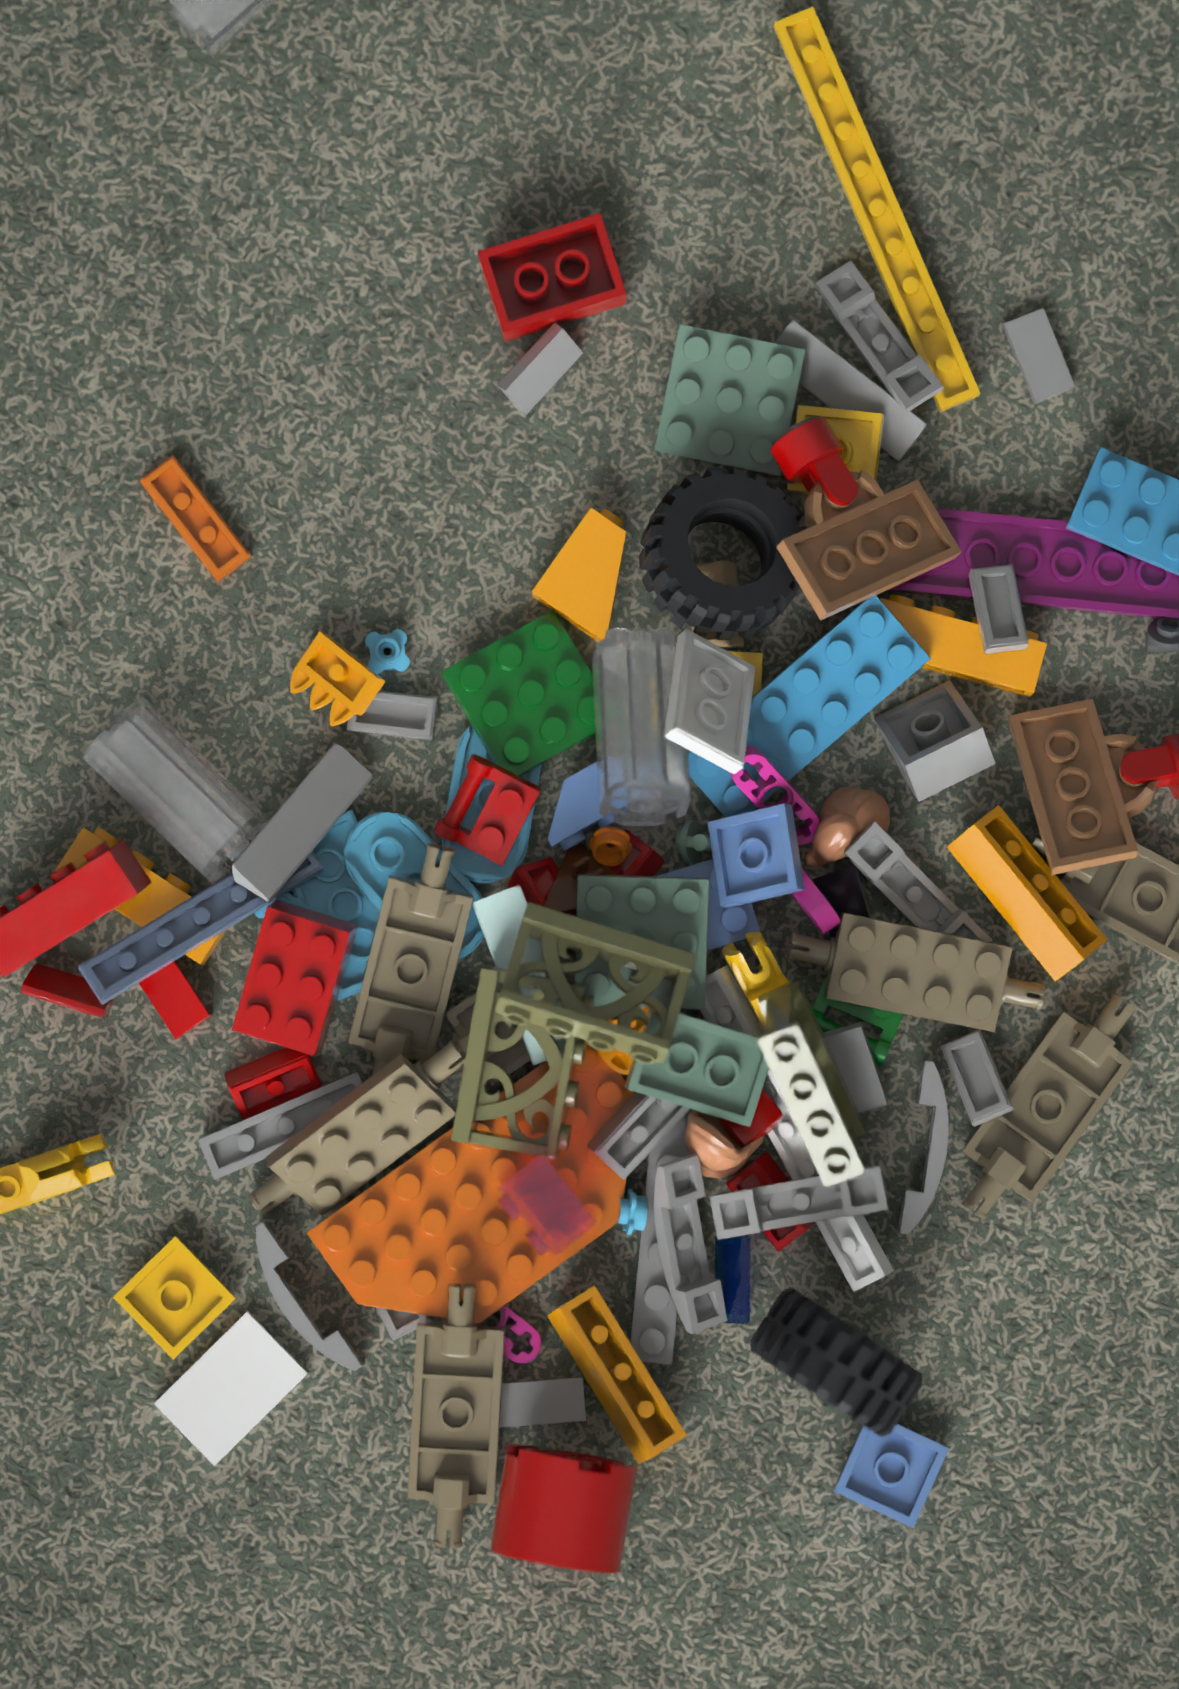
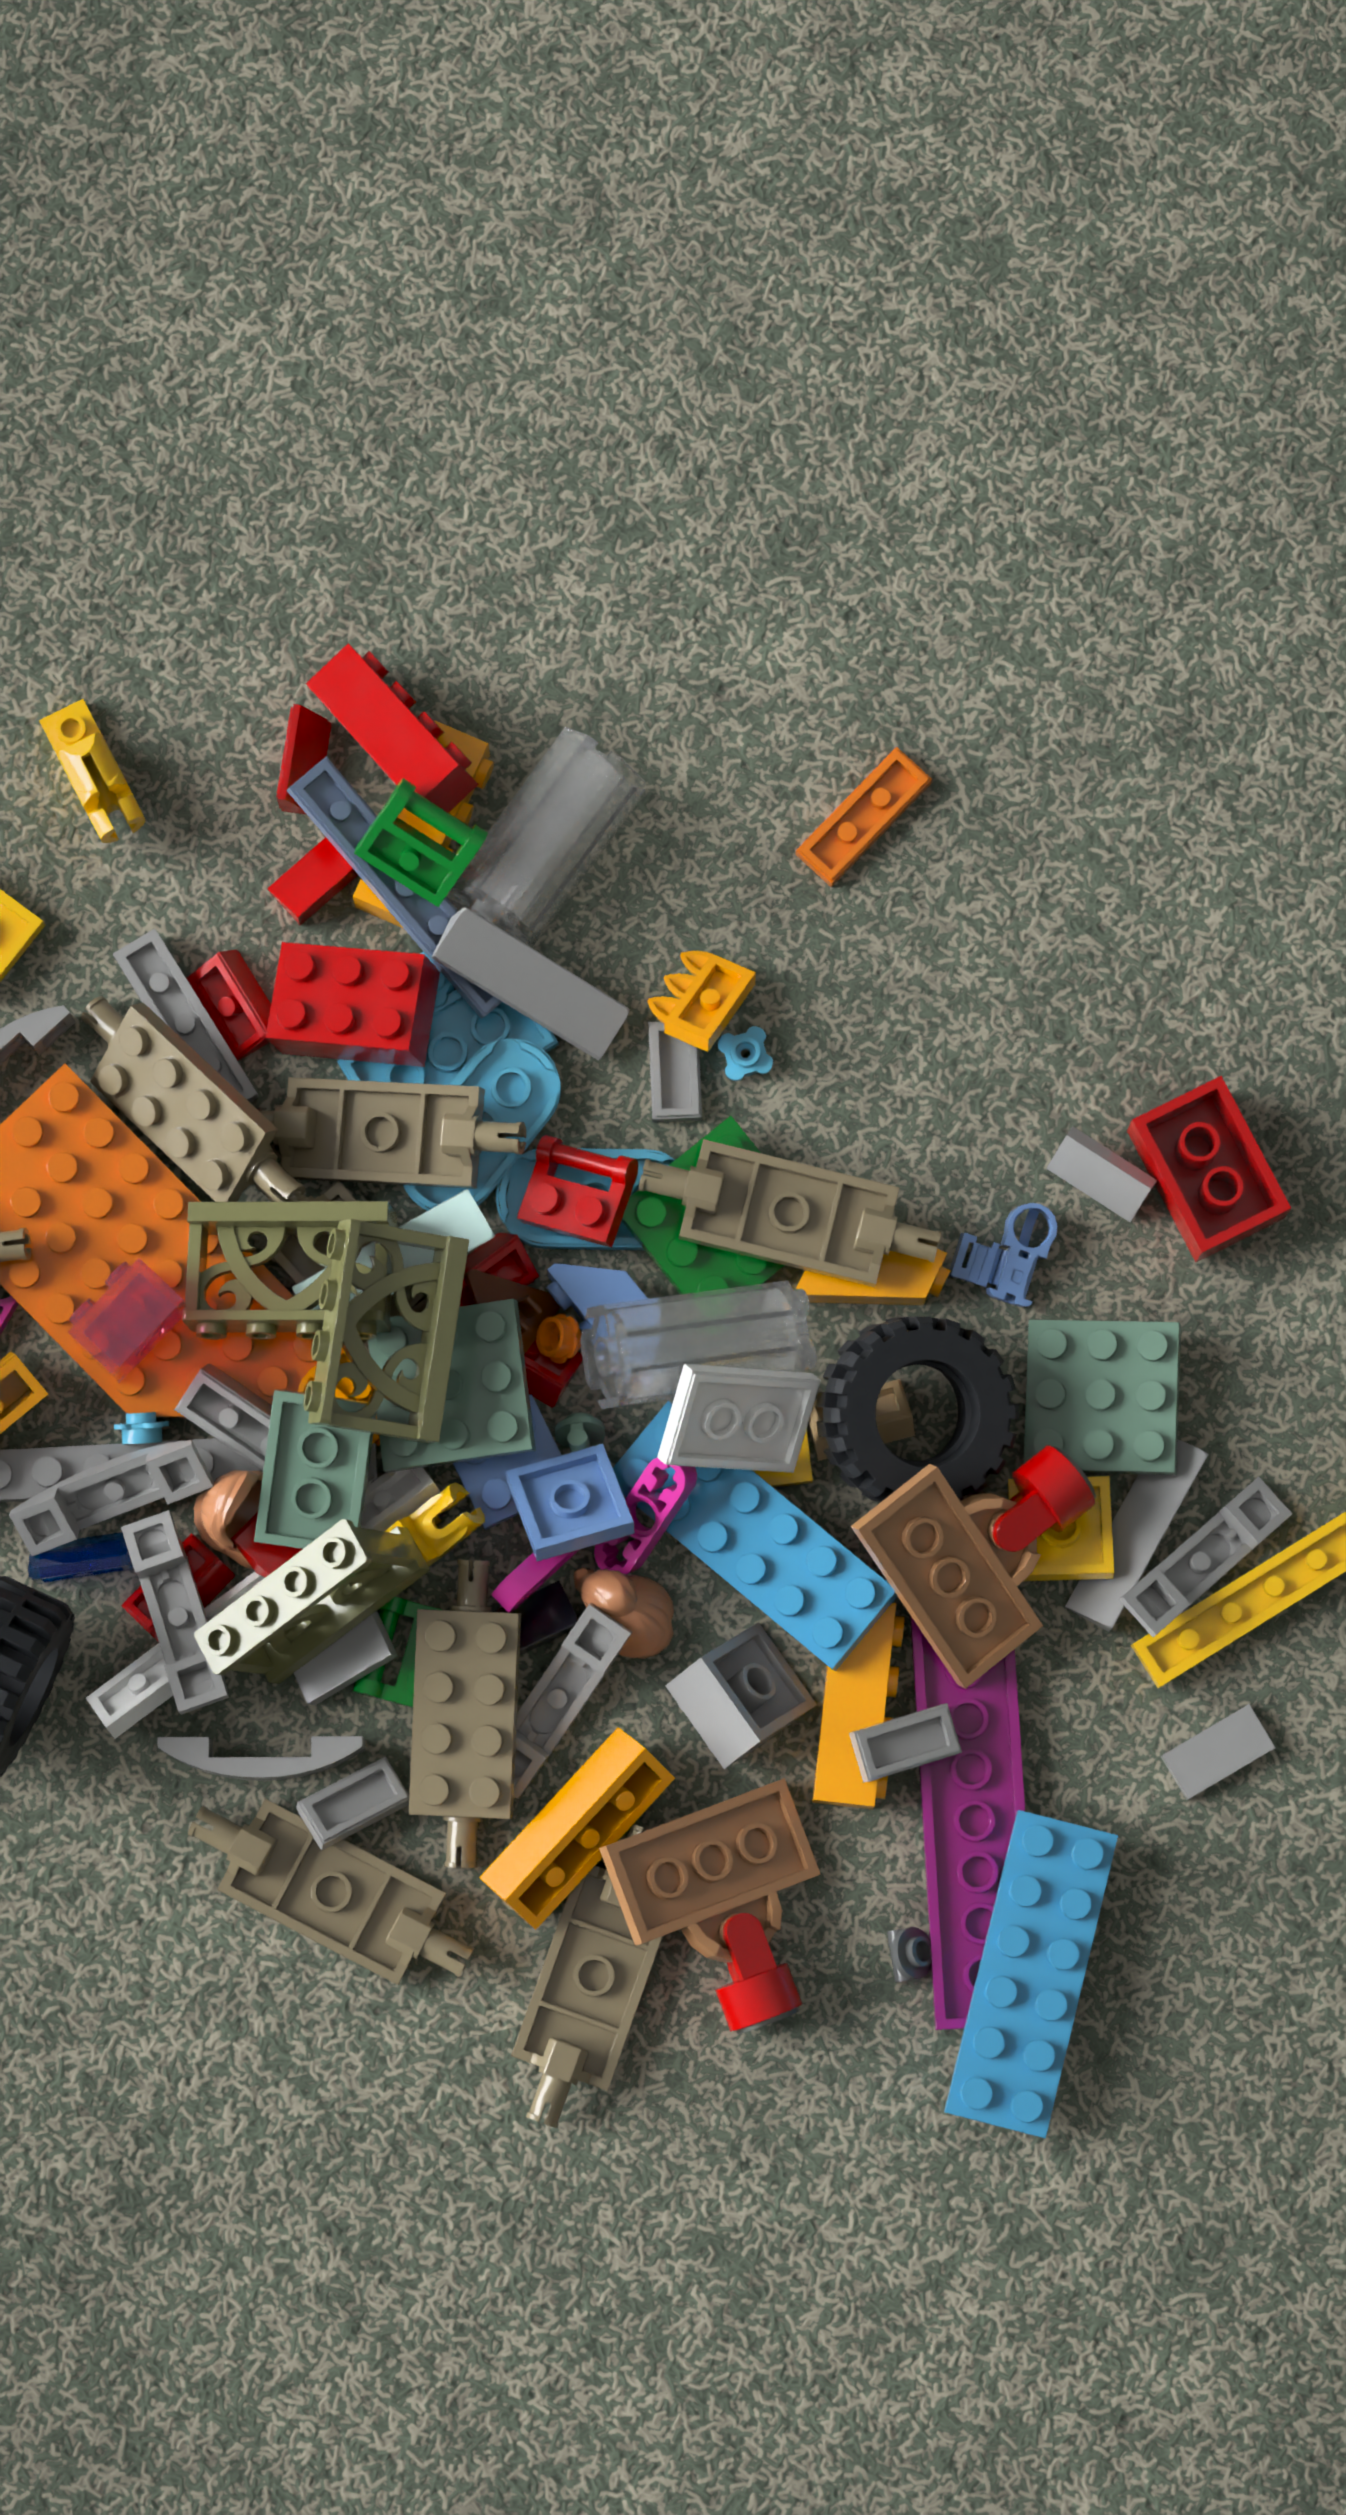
camera: 80 degrees right, 5 degrees down
(179, 904) = (413, 856): none -> green plate
(538, 632) = (789, 1212): none -> dark tan plate
(607, 462) = (1007, 1269): none -> medium blue piece

